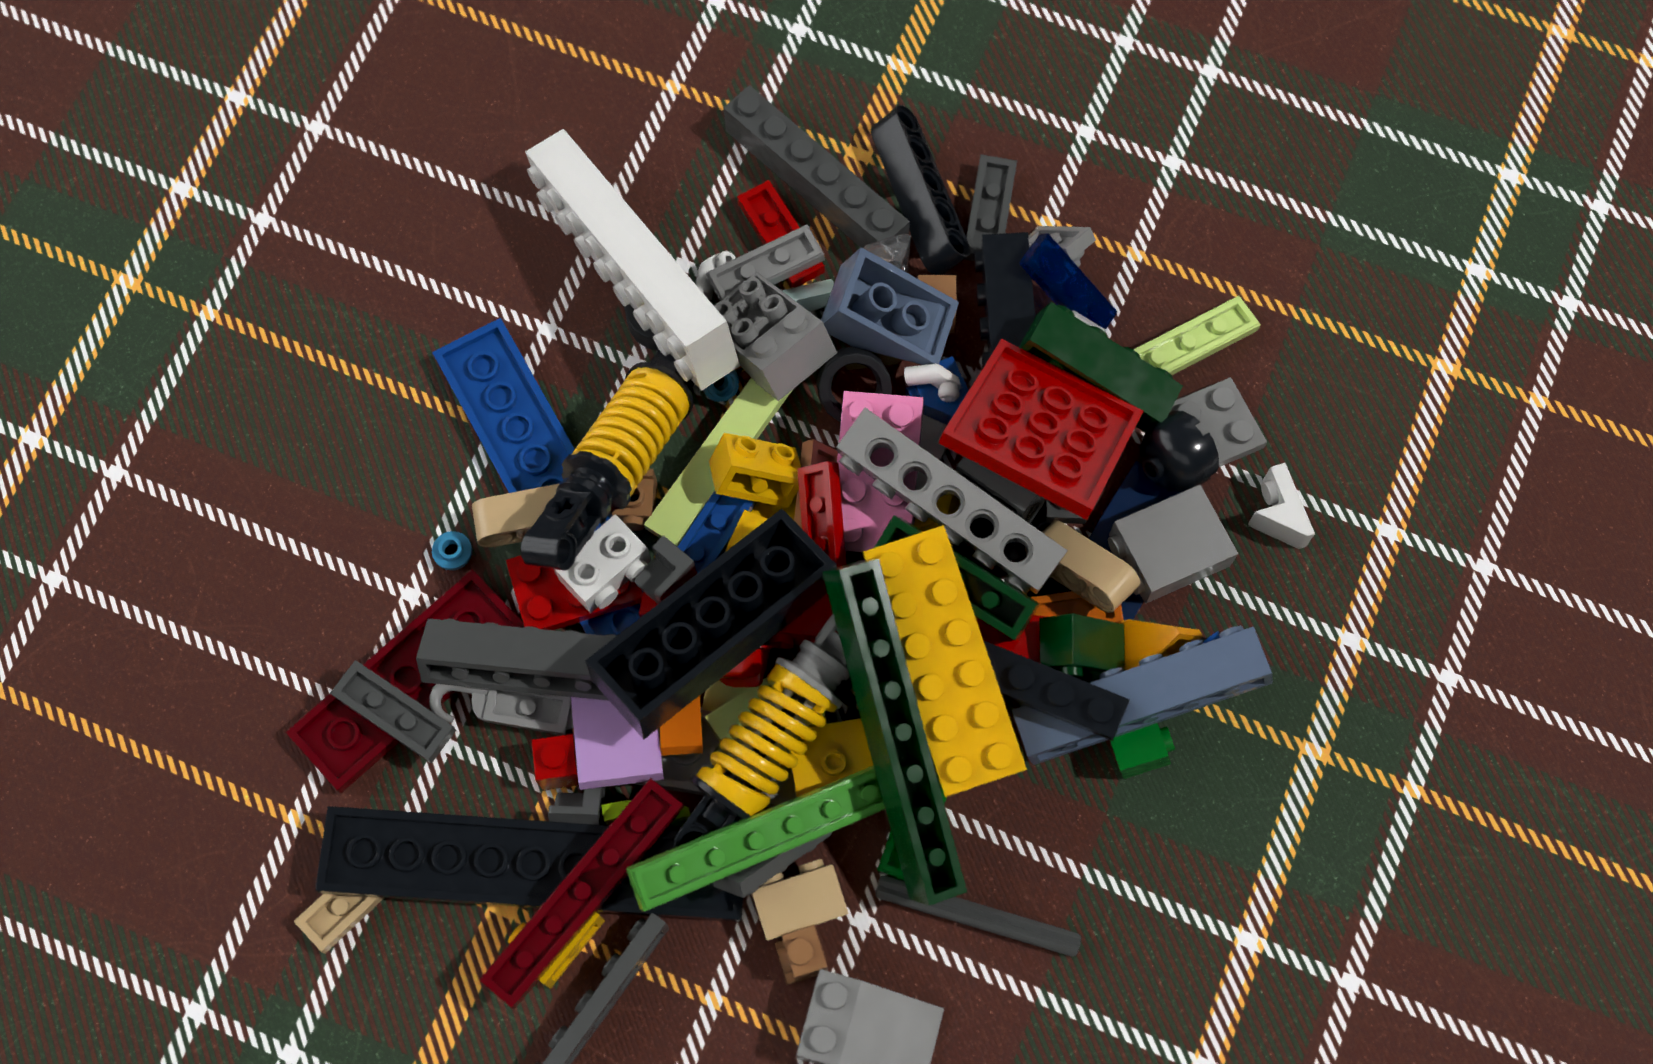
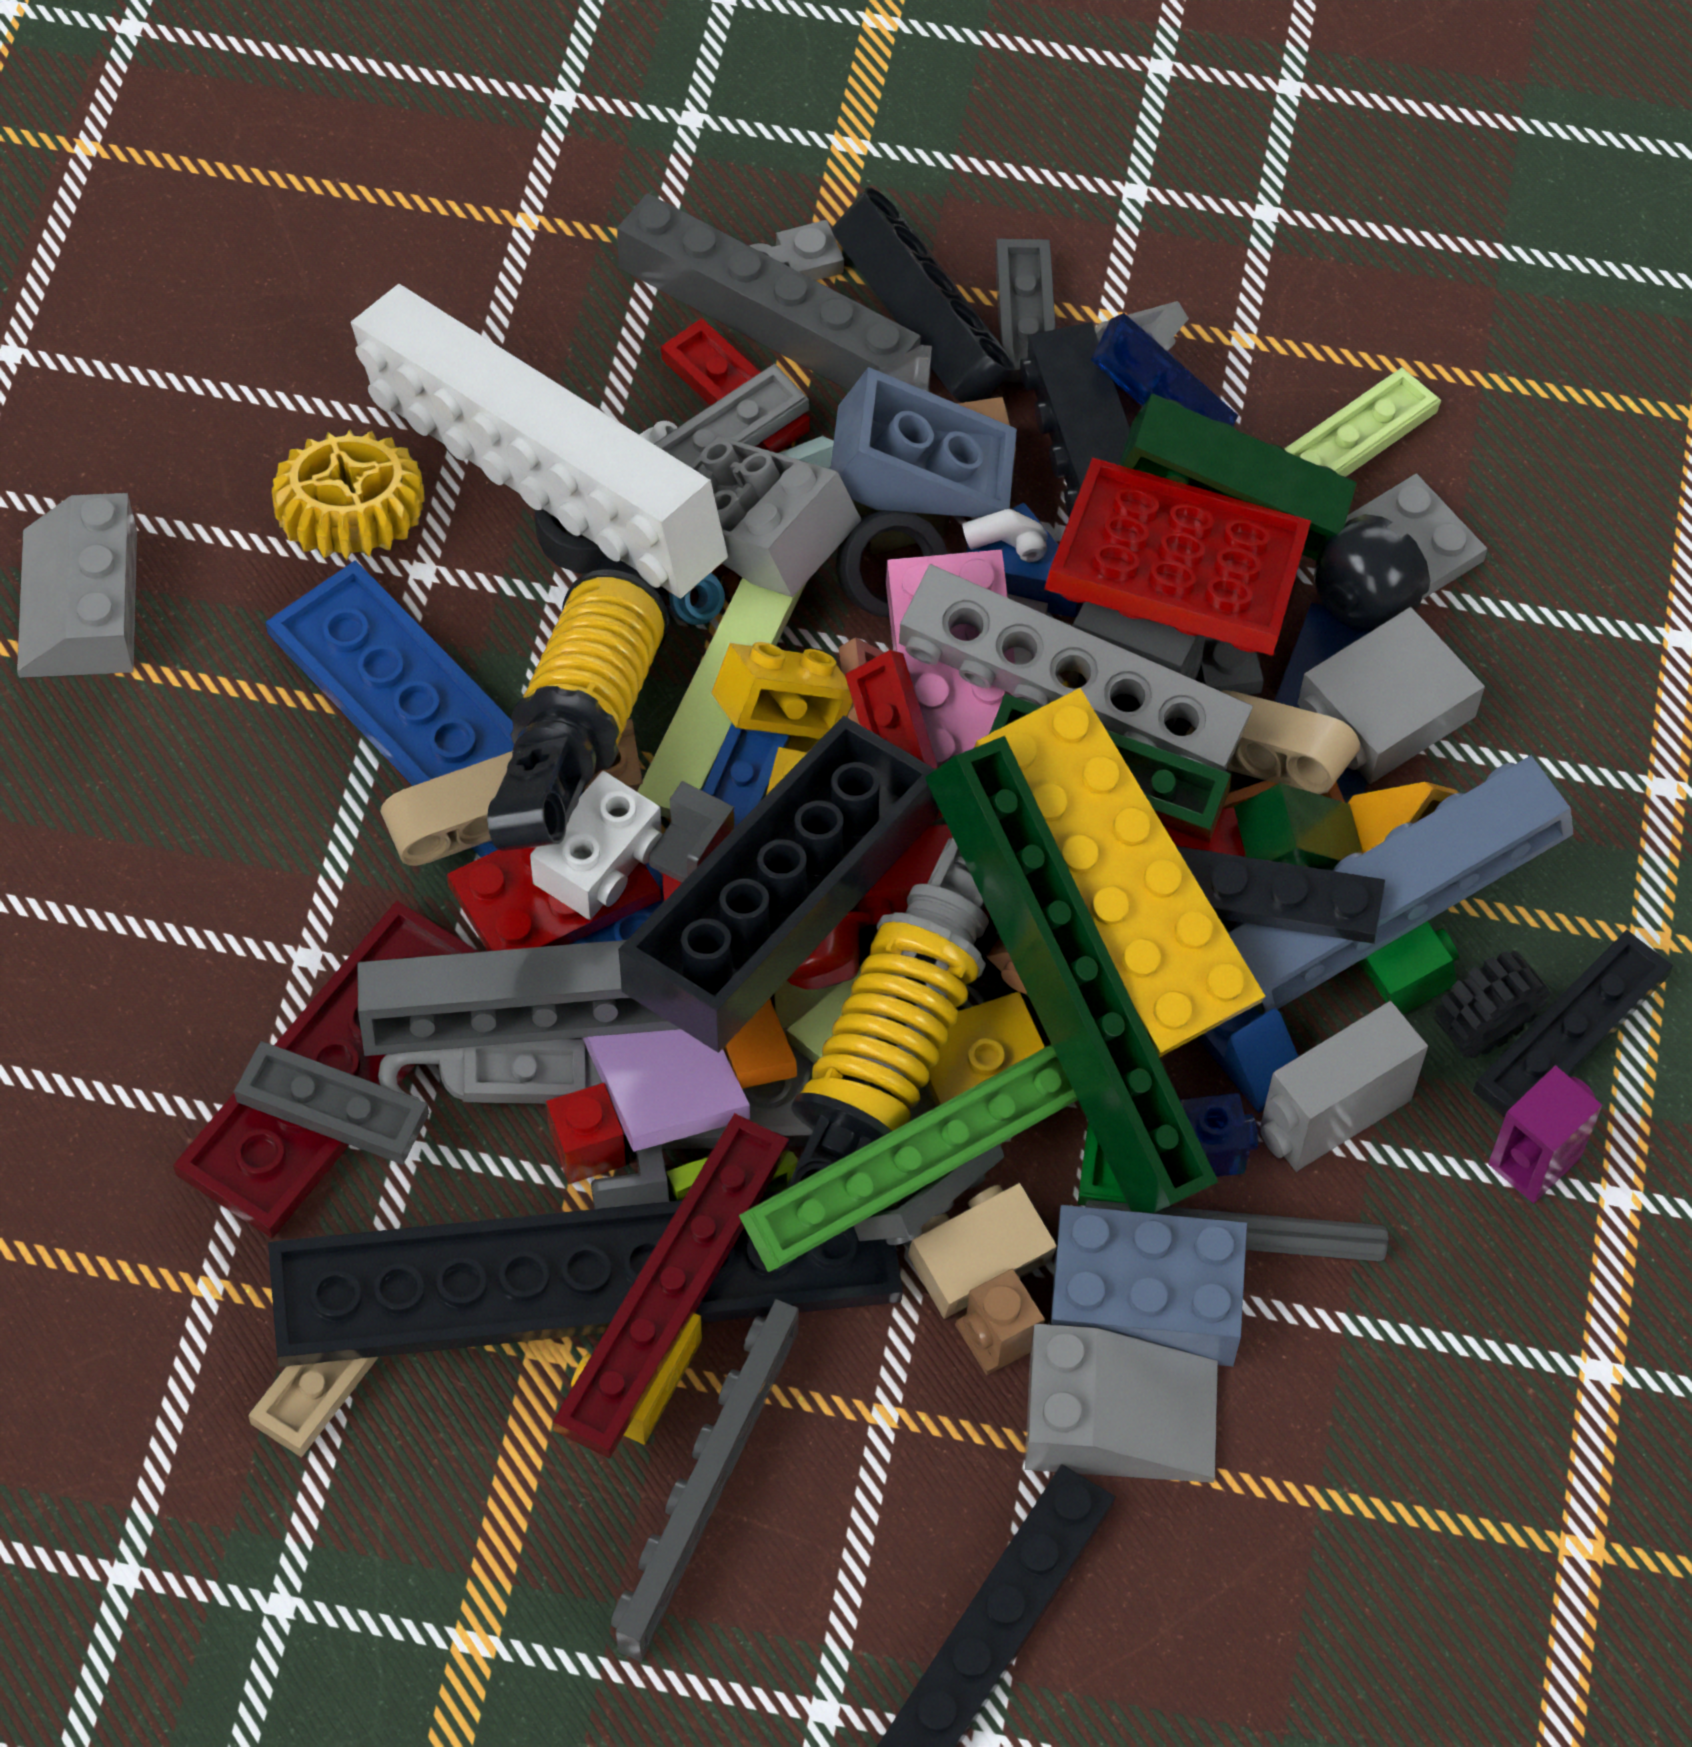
camera: 15 degrees left, 10 degrees down
(321, 306) = (79, 589): none -> light grey slope
(456, 560) = (362, 898): dark azure plate -> none
(482, 273) = (348, 494): none -> yellow gear
(850, 141) = (808, 250): none -> light grey plate
(907, 947) = (1152, 1278): none -> sand blue brick
(978, 844) = (1223, 1131): none -> clear blue brick
(1024, 793) = (1250, 1051): none -> blue slope
(1071, 832) = (1342, 1086): none -> light grey brick
(1190, 789) = (1491, 1004): none -> black tyre
(1205, 894) = (1545, 1133): none -> magenta brick
(1244, 812) = (1576, 1021): none -> black plate
(1287, 516) = (1533, 633): white slope -> none

